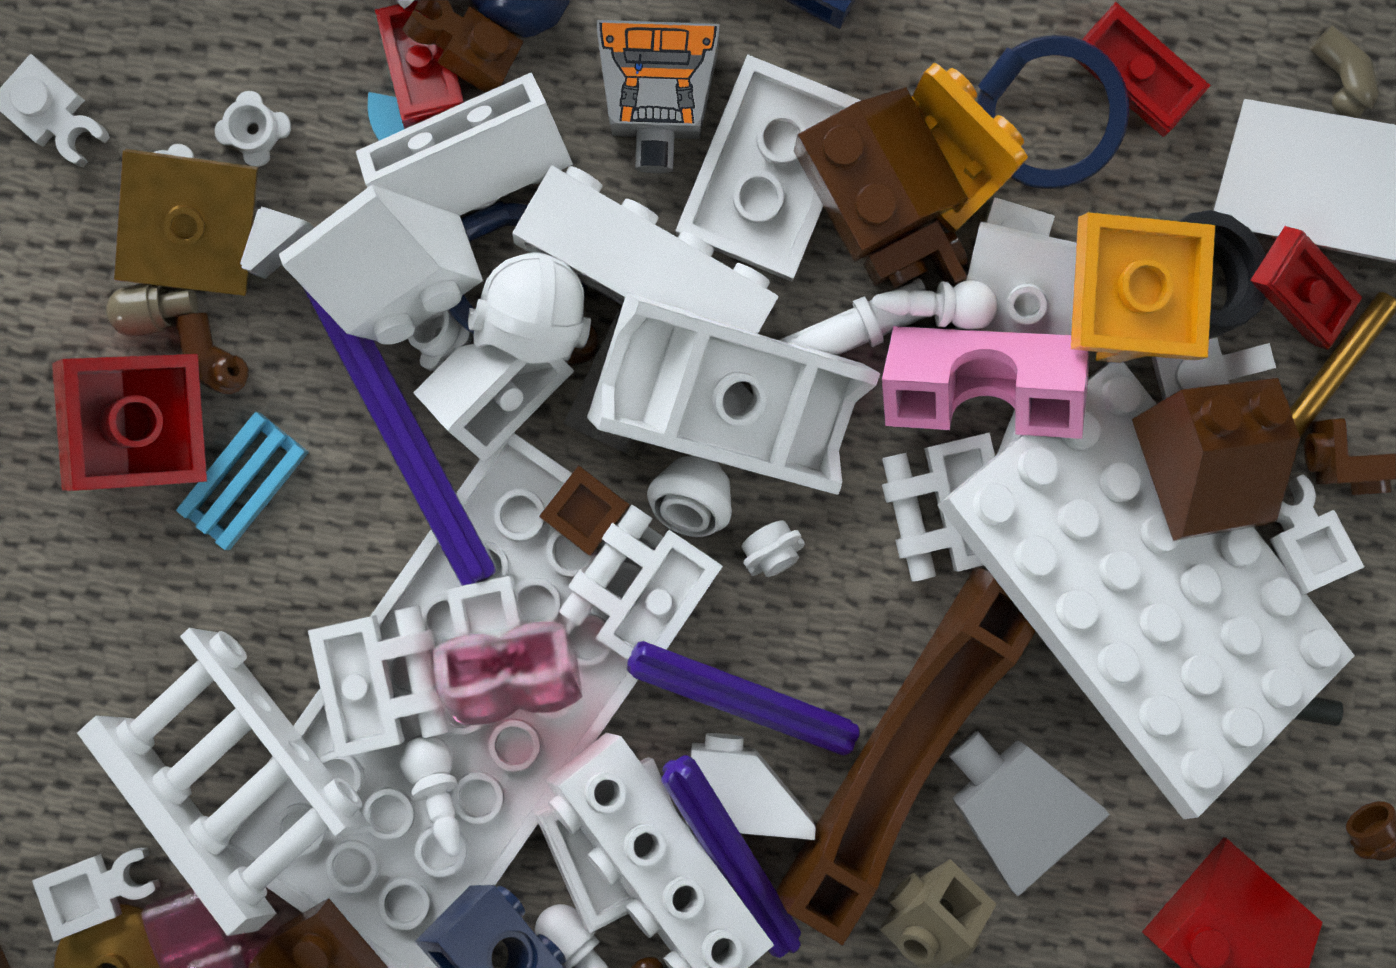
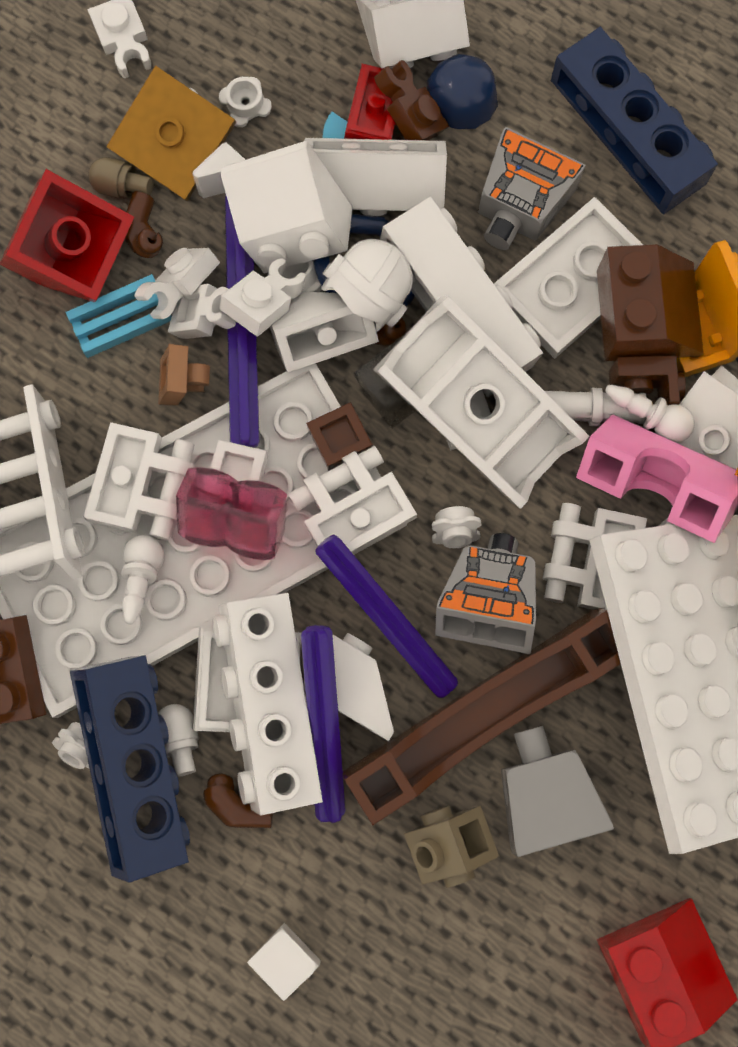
camera: 25 degrees right, 10 degrees down
(295, 400) = (182, 276): none -> white plate
(341, 432) = (199, 313): none -> white plate
(353, 525) = (178, 376): none -> medium nougat tile
(411, 398) = (262, 301): none -> white plate
(691, 497) = (417, 464): white cone -> none
(851, 615) = (490, 597): none -> torso

